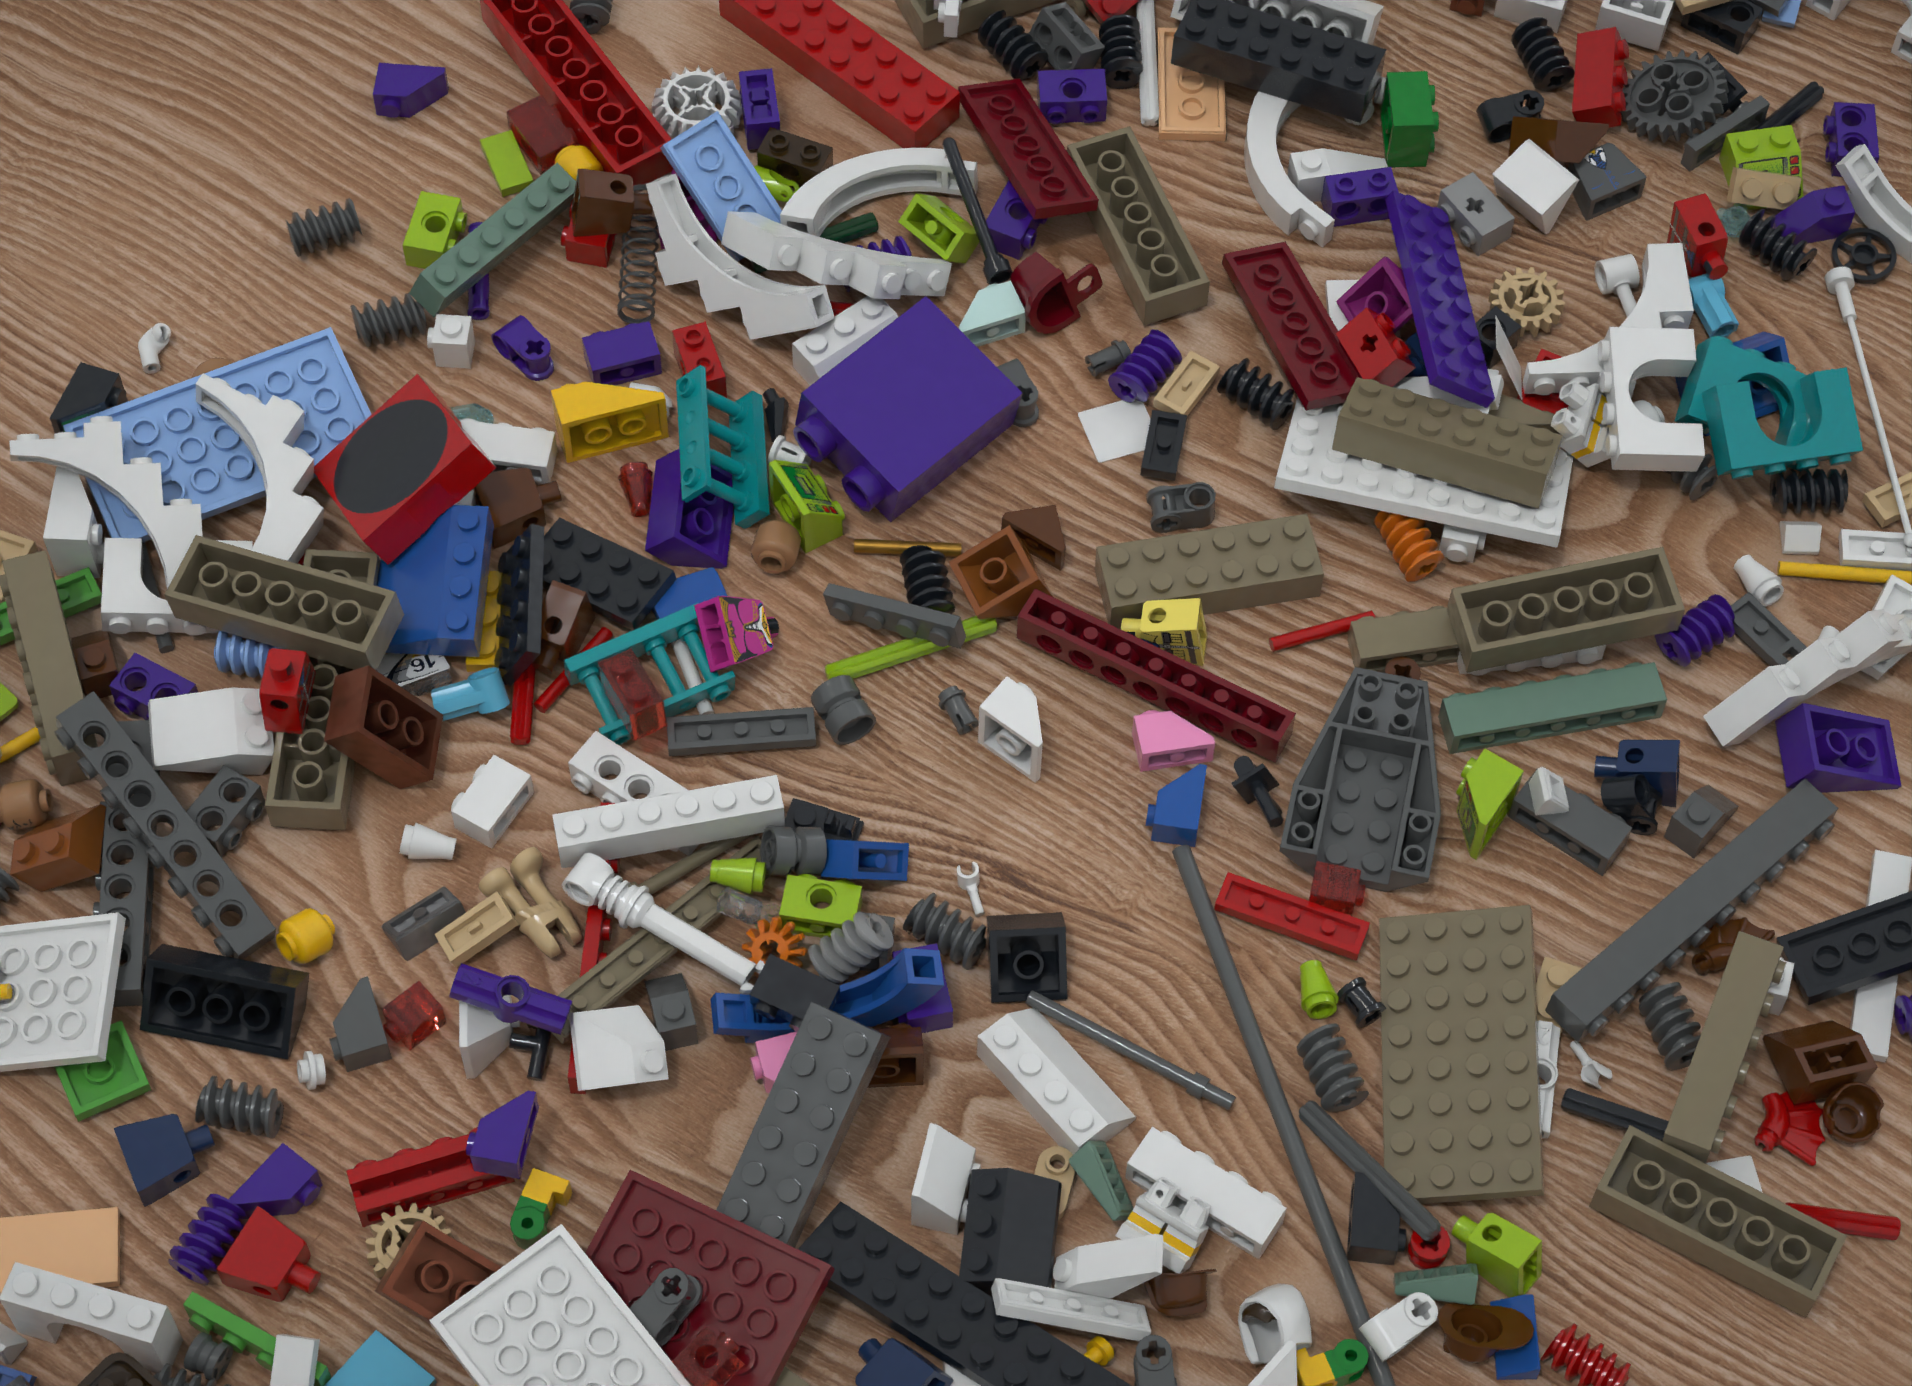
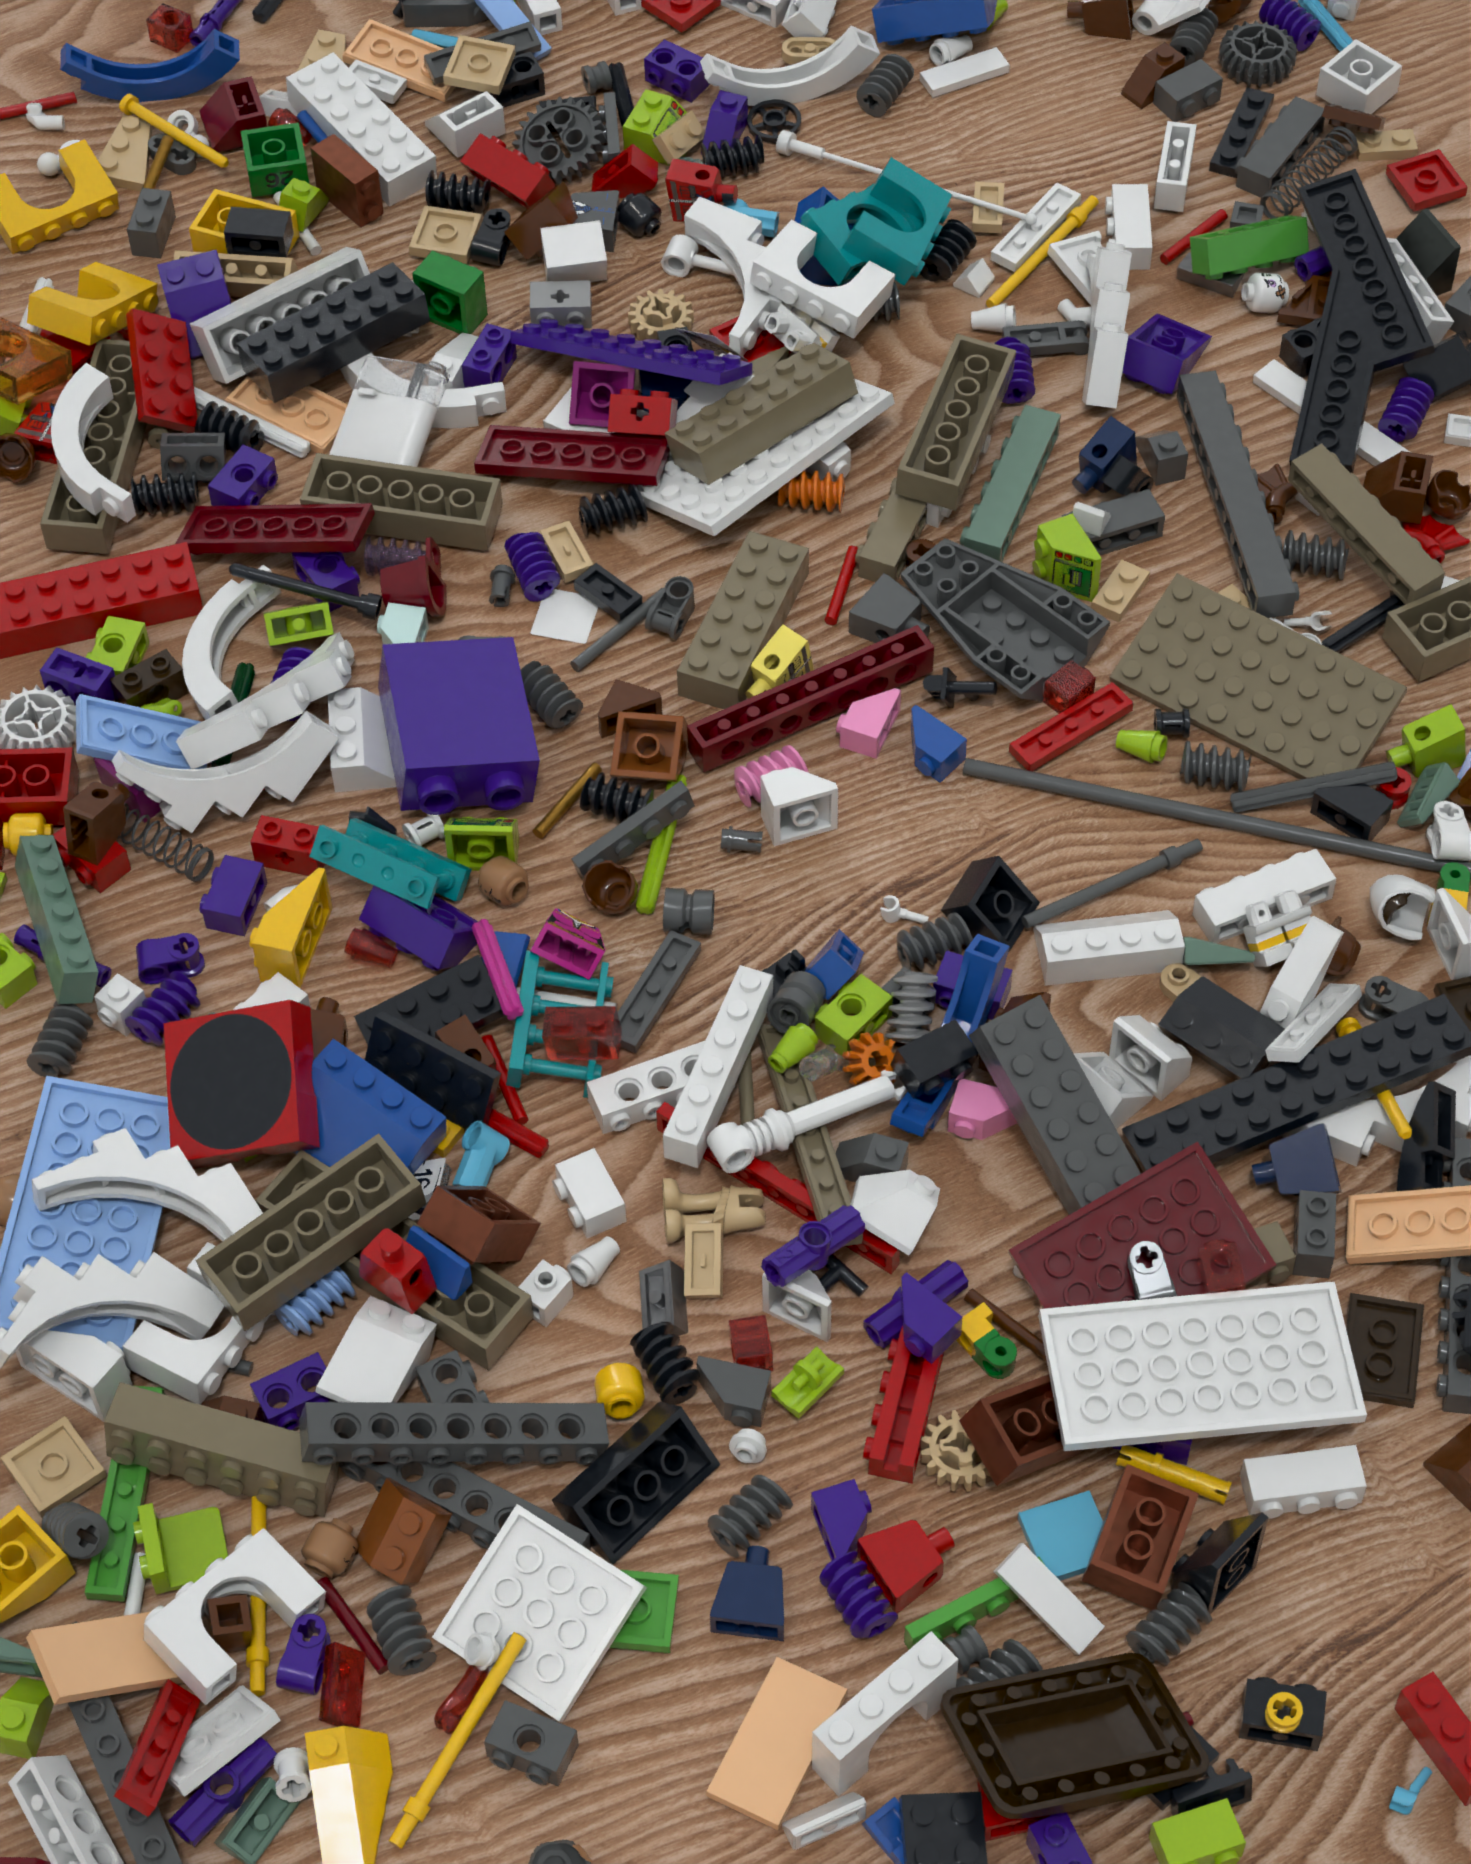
camera: 55 degrees left, 5 degrees down
(316, 719) = (448, 1269): none -> blue slope
(351, 955) = (666, 1363): none -> black piece
(369, 823) = (549, 1291): none -> white brick
(400, 1080) = (807, 1382): none -> lime hips
(467, 375) = (163, 1007): none -> dark purple piece
(557, 1131) = (886, 1323): none -> dark purple piece
(578, 1200) = (1008, 1324): none -> reddish brown bar
(664, 593) = (497, 969): none -> dark pink axle
(817, 116) = (120, 644): none -> lime brick
(824, 632) = (610, 887): none -> reddish brown hair
(877, 1162) = (1115, 1088): none -> white slope
(1005, 463) = (549, 695): none -> dark grey piece
(1050, 696) = (748, 778): none -> bright pink piece
(1069, 252) = (381, 556): none -> clear purple piece
(1116, 477) = (614, 634): none -> dark grey bar
(1225, 158) = (391, 411): none -> white door
(1308, 685) = (885, 611): none -> dark grey torso
(1486, 74) = (445, 232): none -> tan plate
(1499, 873) = (1120, 590): none -> tan plate
(1639, 213) = (639, 214): none -> black head
(1679, 173) = (628, 173): none -> red slope
(1786, 80) = (596, 77): none -> dark grey wheel

